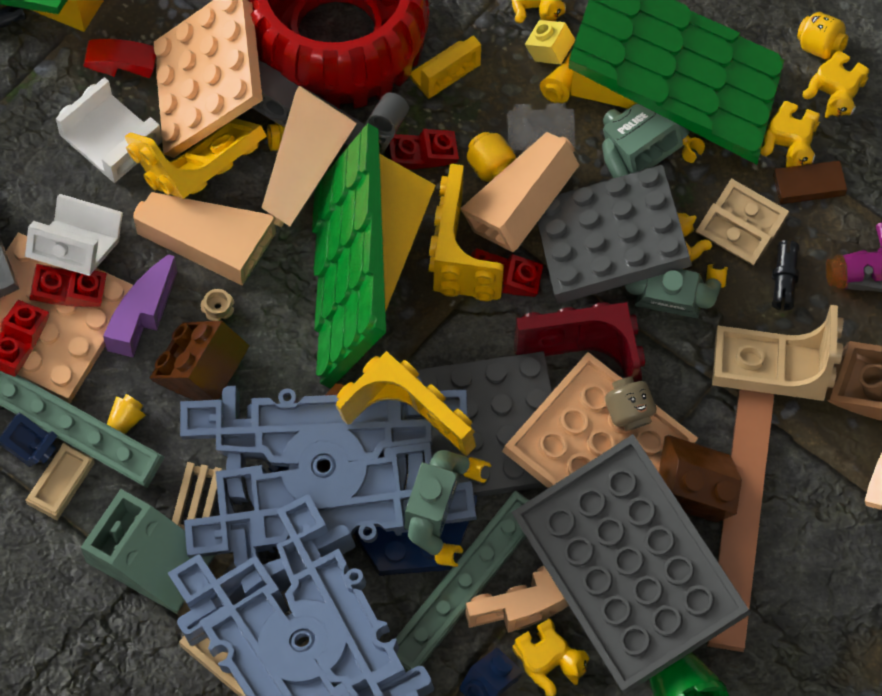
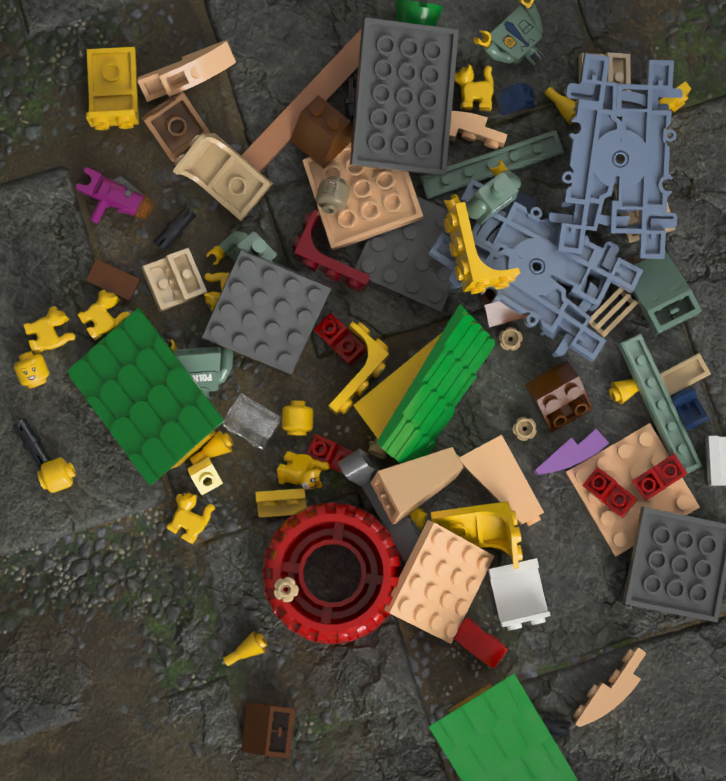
camera: 145 degrees left, 20 degrees up
(77, 236) = (587, 522): white panel -> none
(303, 384) = (510, 332): none -> tan plate
(448, 102) = (301, 470): none -> yellow animal
(522, 192) = (297, 378): light nougat slope -> none

